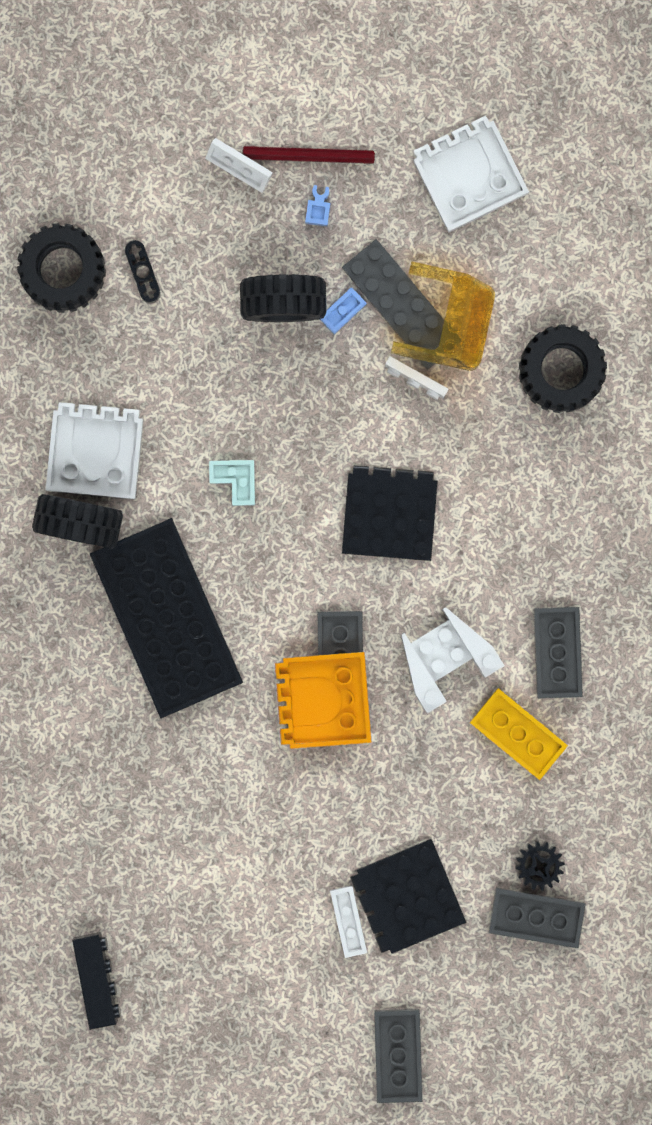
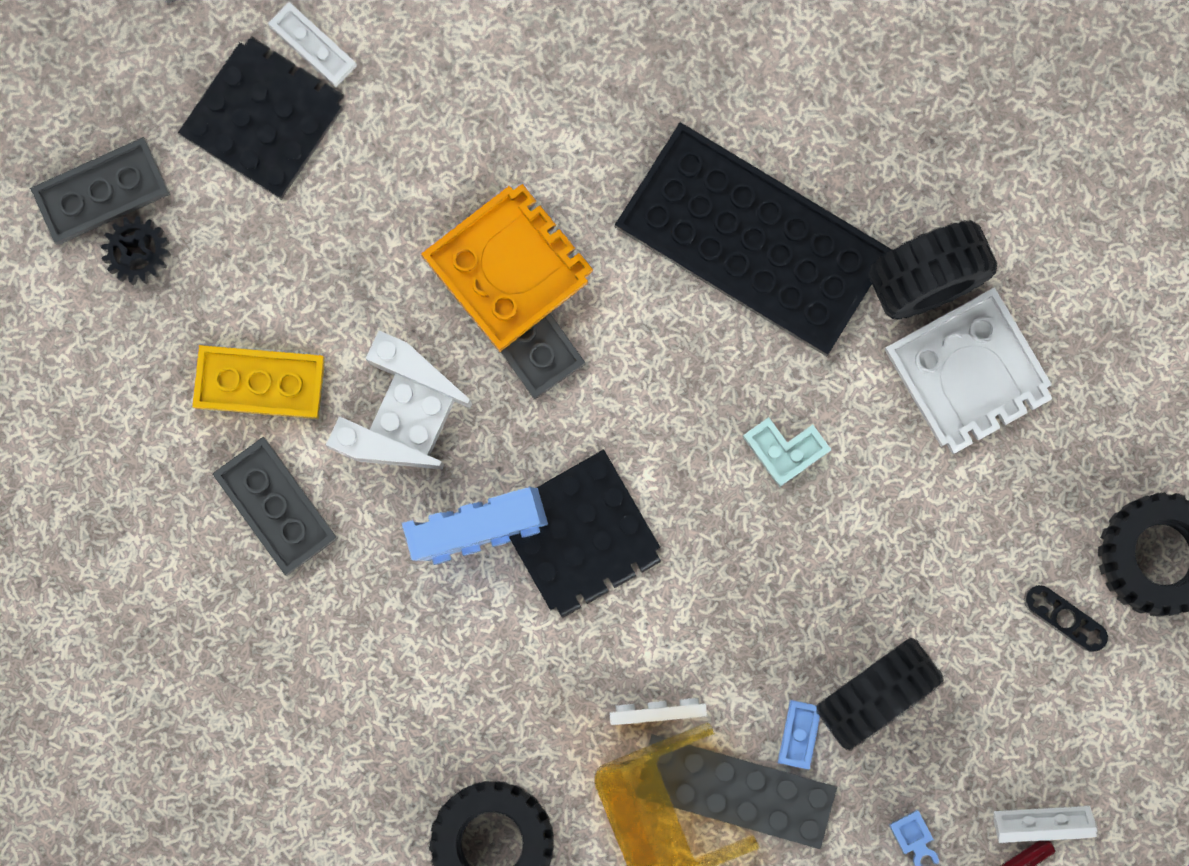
camera: 150 degrees right, 5 degrees down
(448, 557) = (475, 526): none -> light blue wedge

